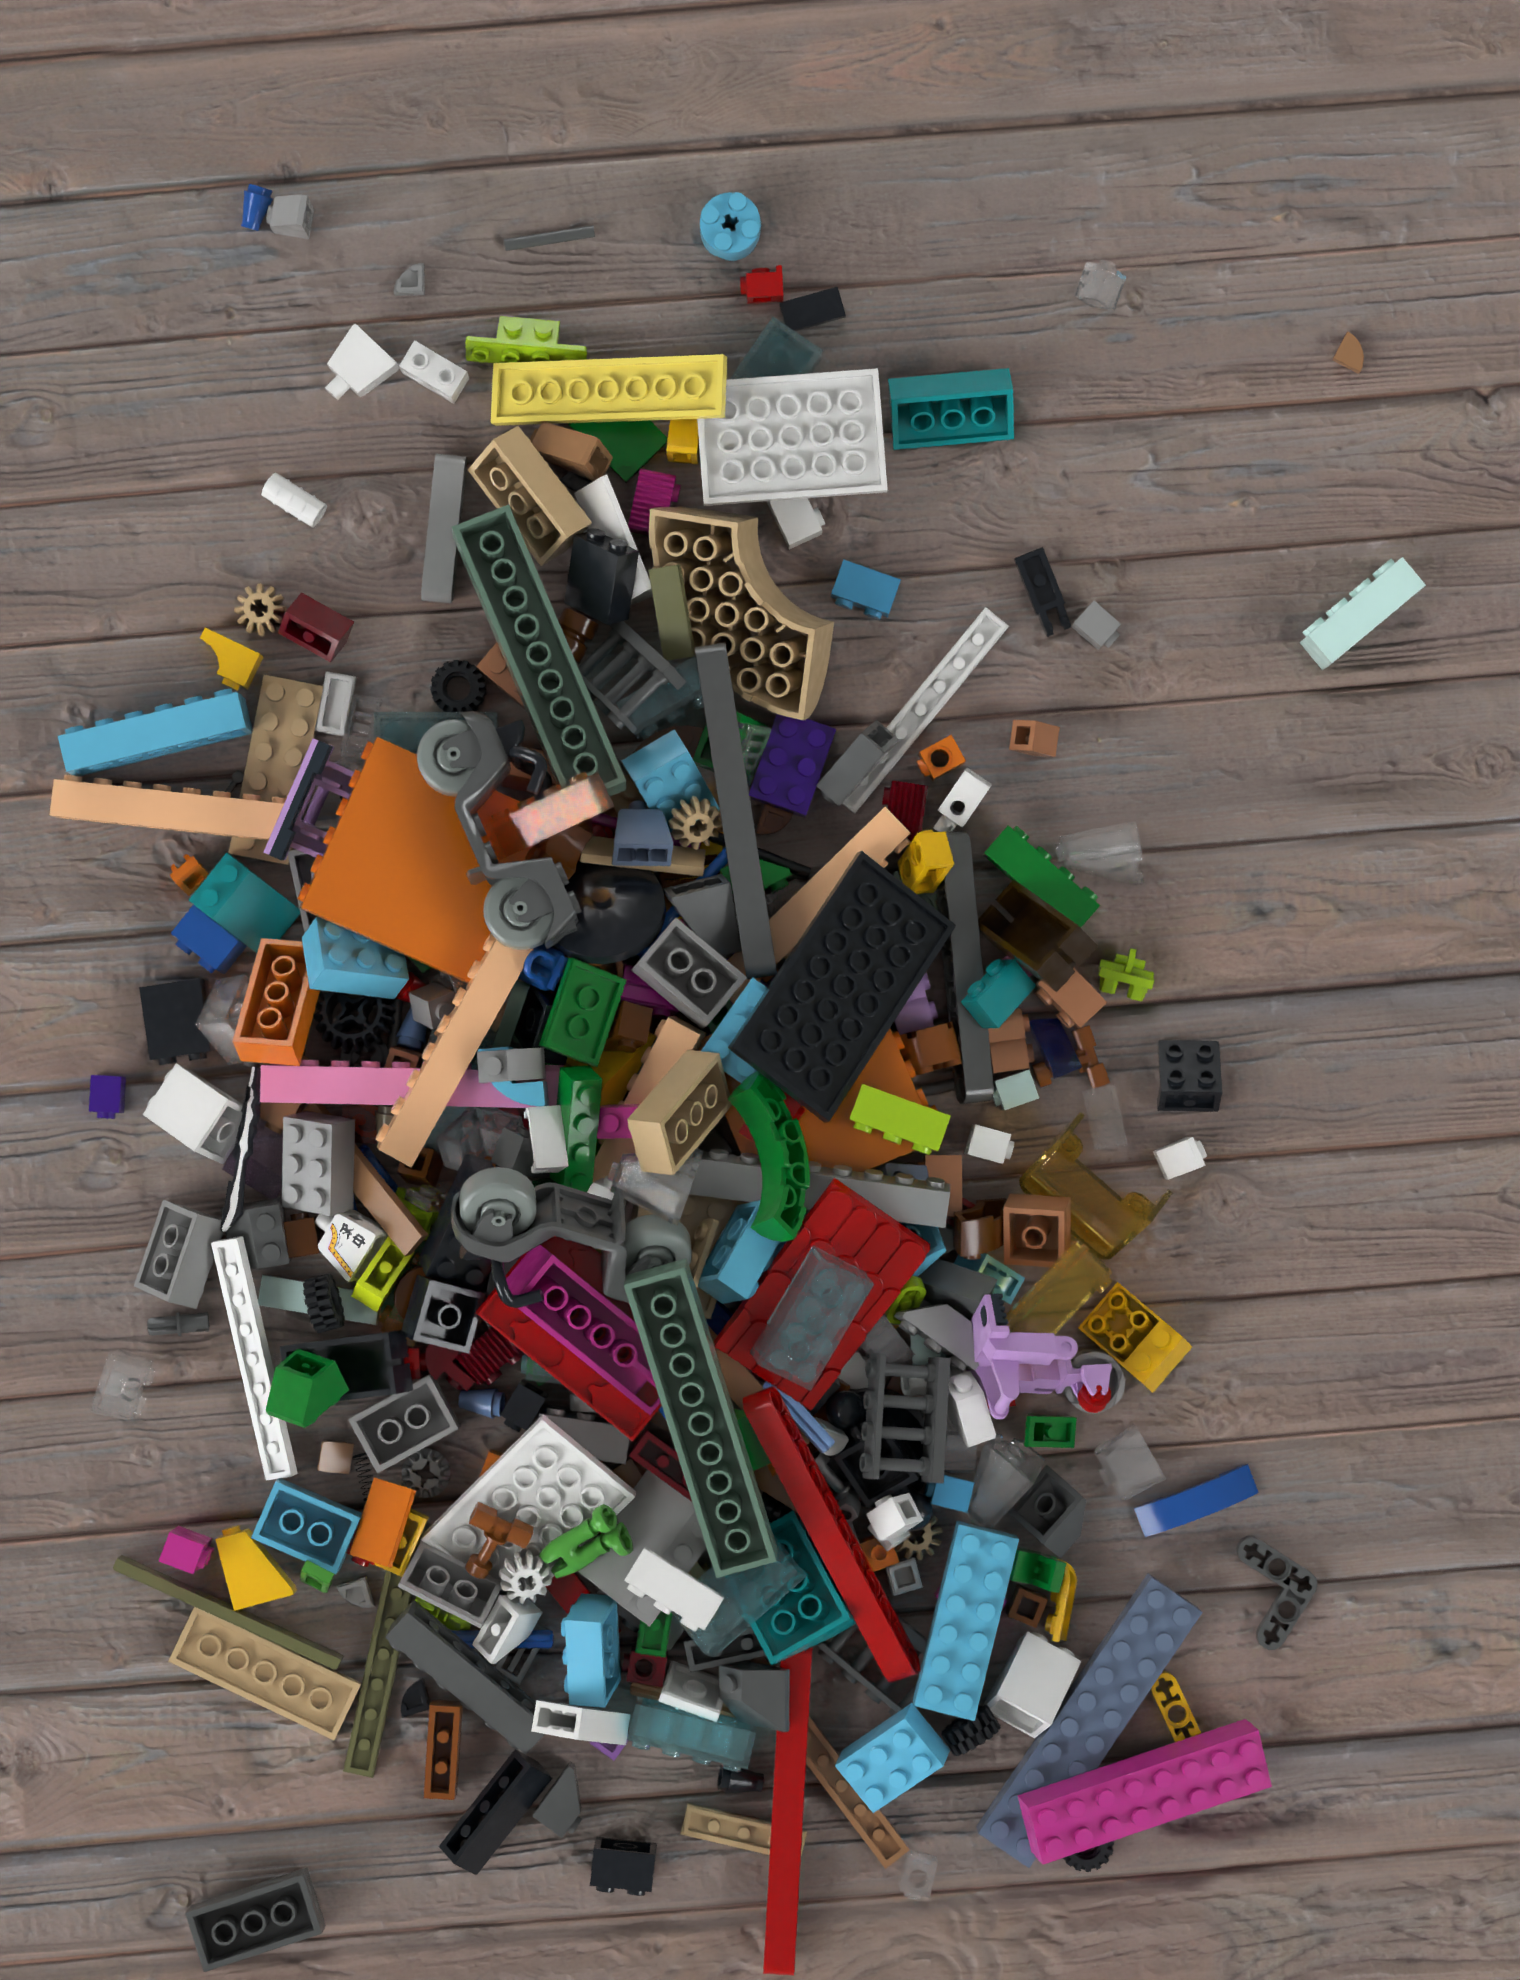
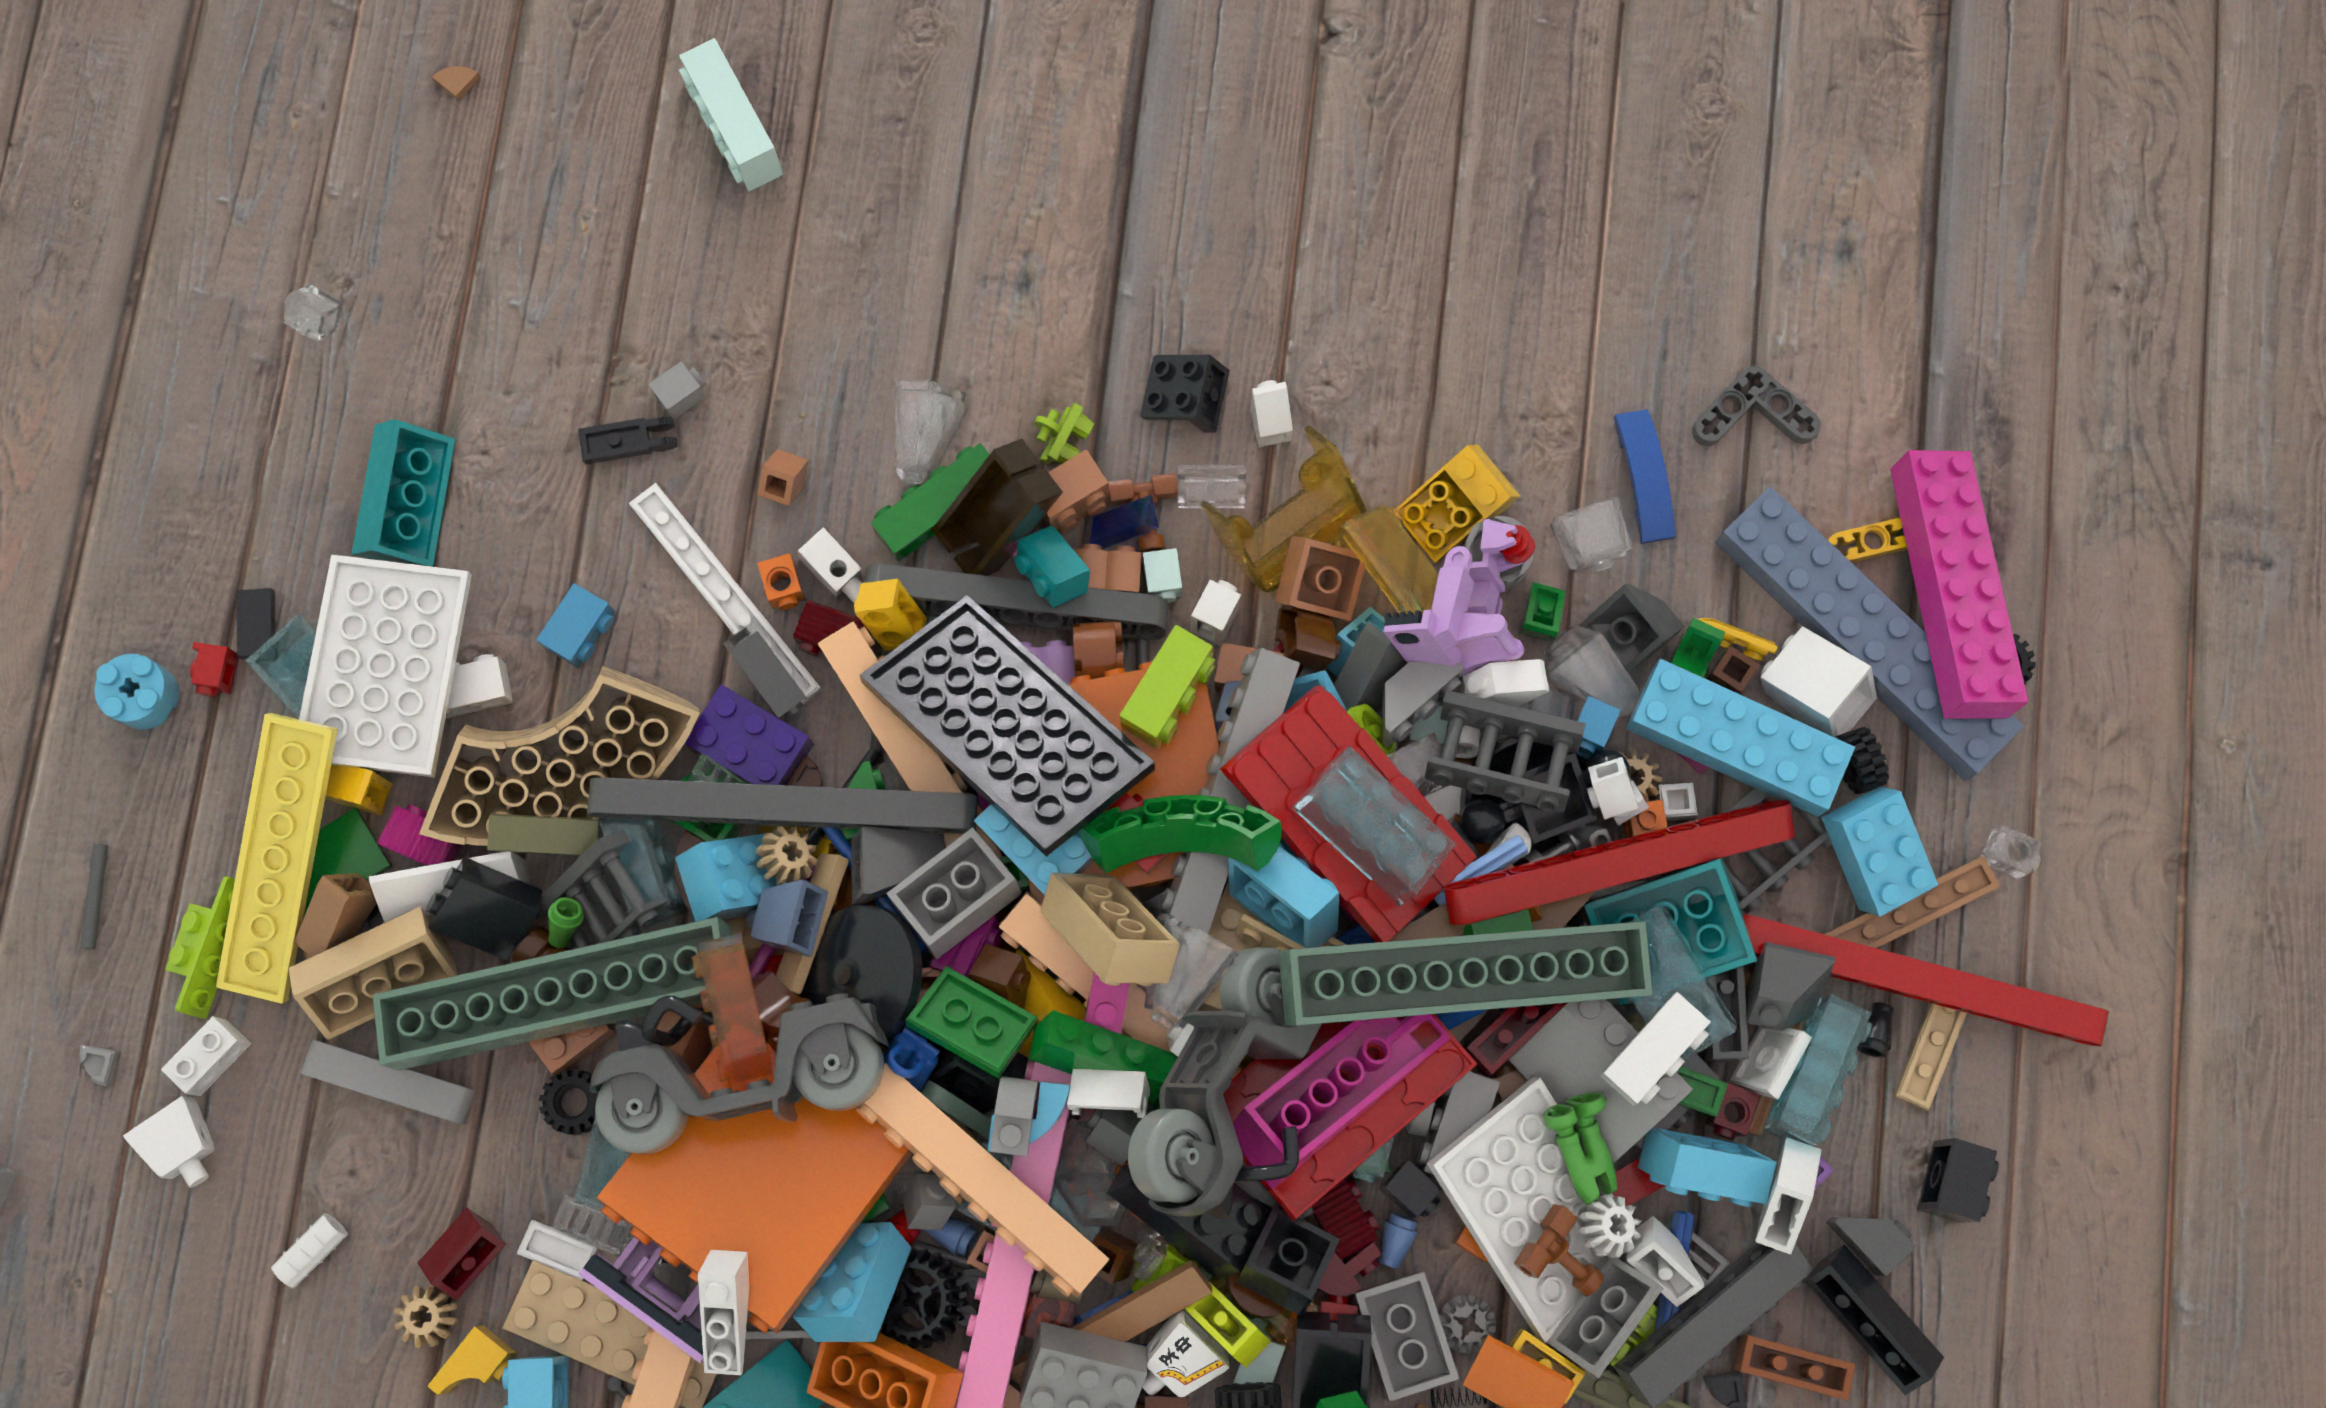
camera: 75 degrees left, 10 degrees down
(307, 864) = (724, 1310): none -> white slope
(604, 646) = (563, 920): none -> bright green cone

